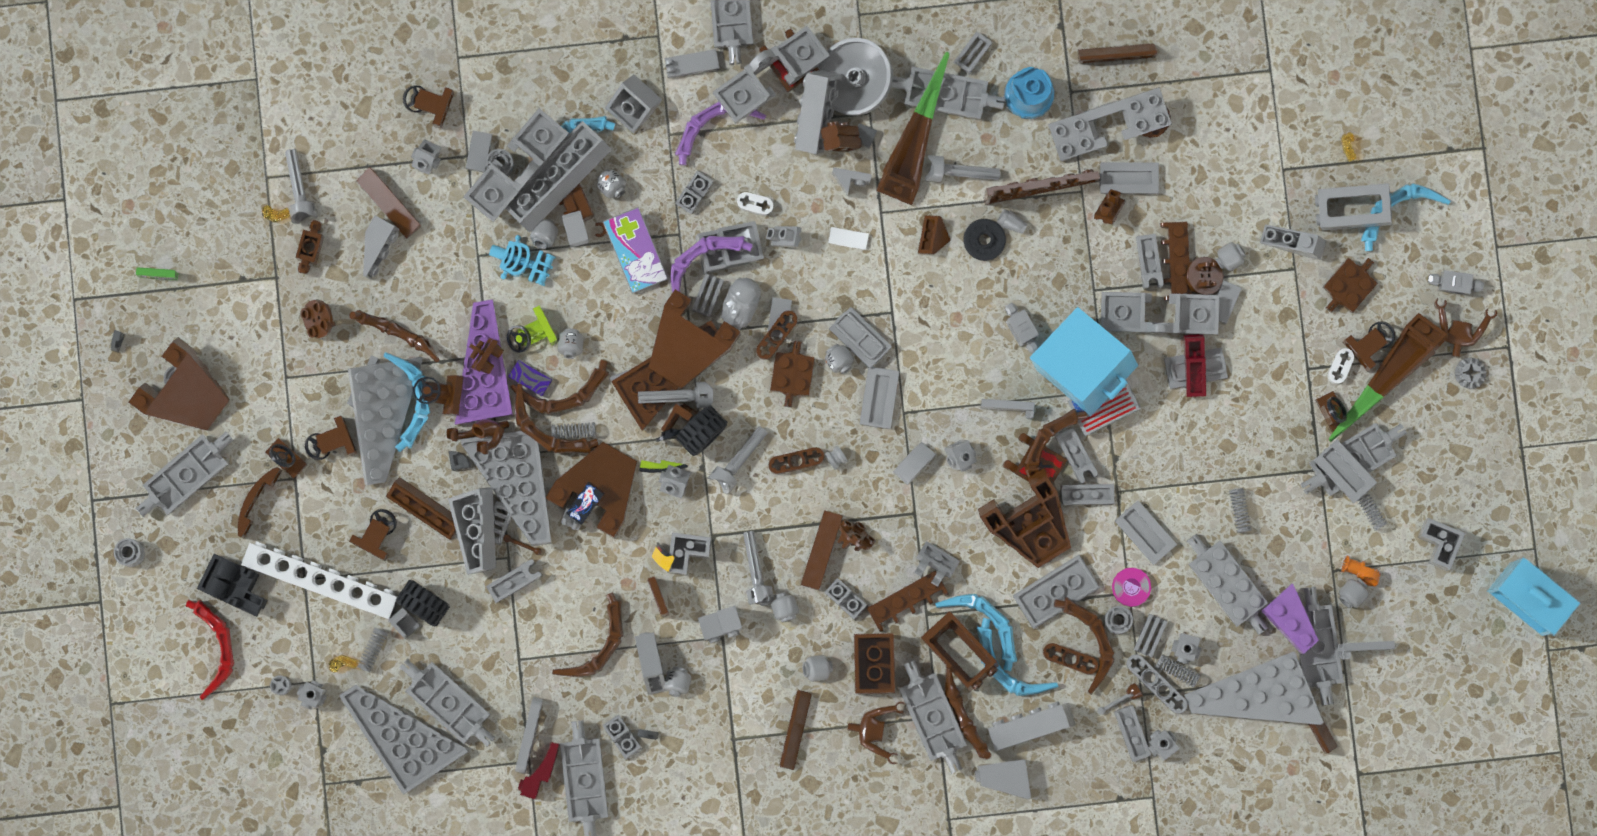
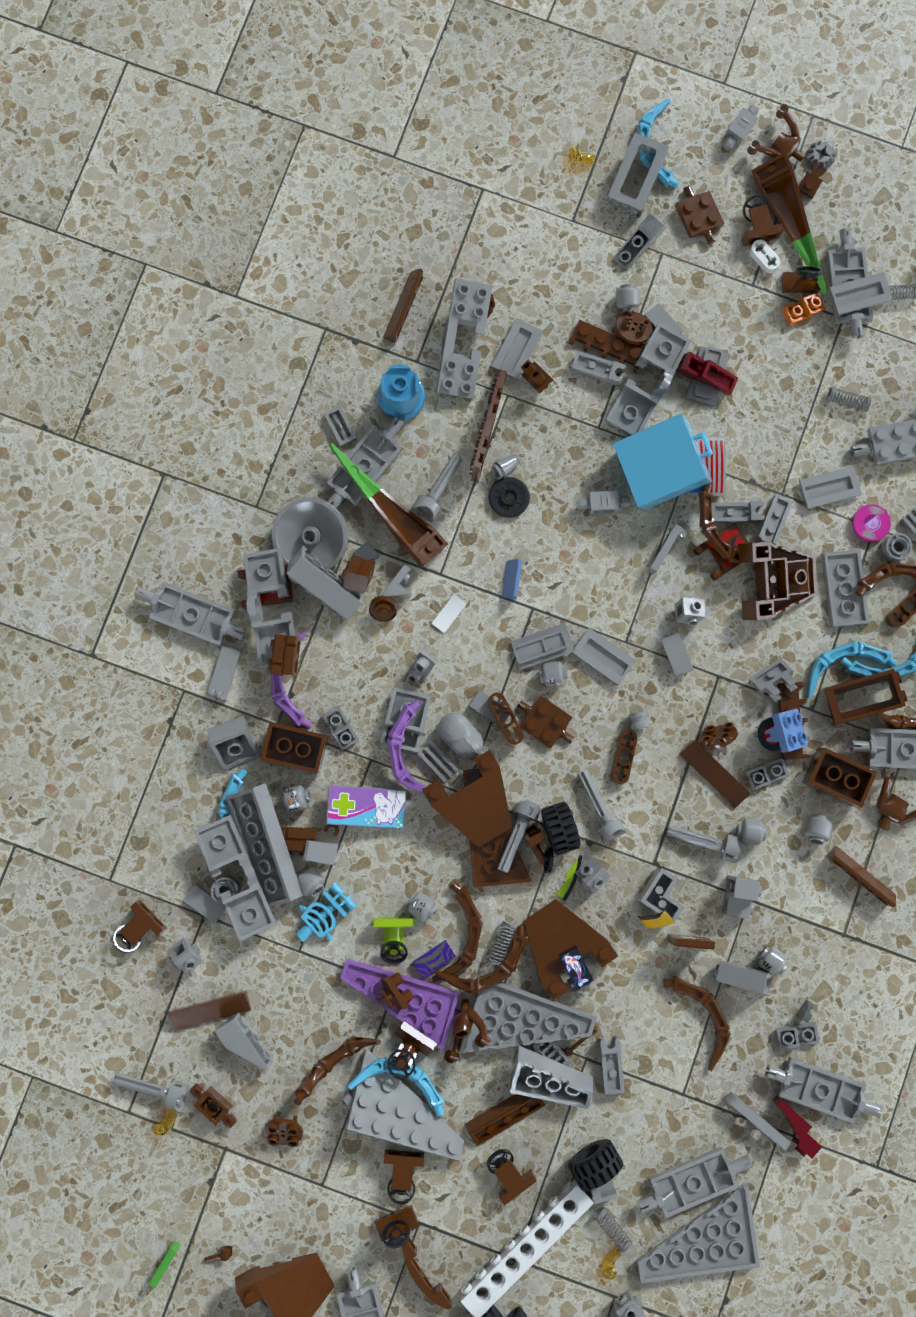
camera: 70 degrees left, 0 degrees up
(190, 322) = (224, 1255): none -> reddish brown hand
(458, 461) = (477, 1062): dark grey tile -> none
(656, 159) = (294, 747): none -> reddish brown brick
(733, 108) = (284, 656): none -> reddish brown brick
(753, 208) = (374, 676): white beam -> none
(821, 175) = (383, 608): none -> reddish brown plate
(891, 592) = (782, 732): none -> medium blue plate
(909, 279) = (512, 579): none -> medium blue slope
(933, 235) = (483, 539): reddish brown slope -> none
(1307, 427) = (803, 309): none -> orange slope
(1436, 375) = (811, 182): none -> reddish brown plate

